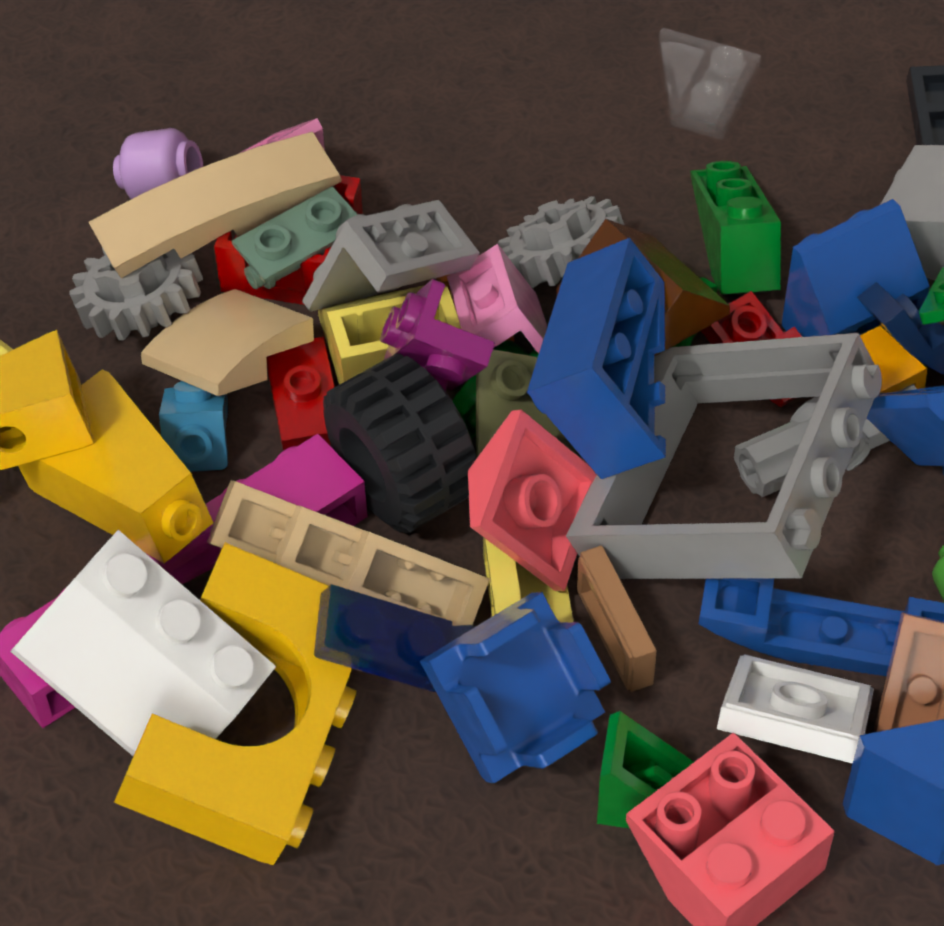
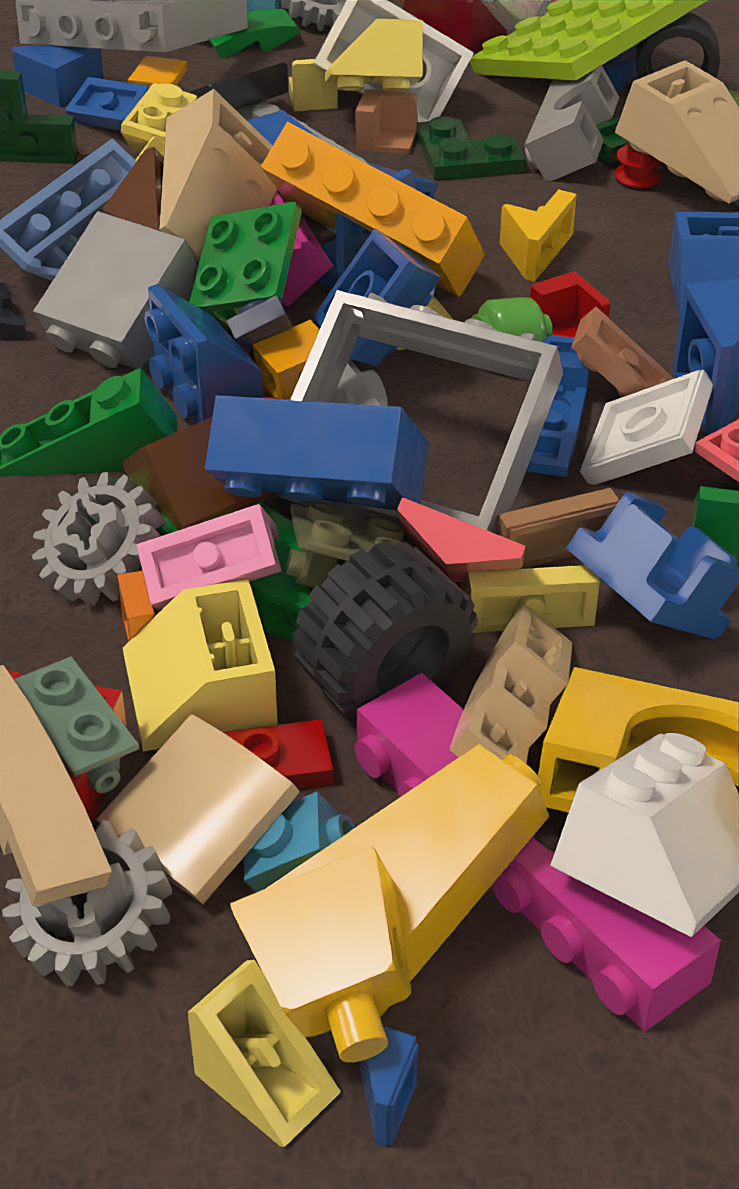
camera: 90 degrees left, 10 degrees down
(379, 636) = (615, 652): clear blue hinge -> none
(389, 252) = (126, 612): light grey bracket -> none
(439, 348) = (291, 561): magenta bracket -> none

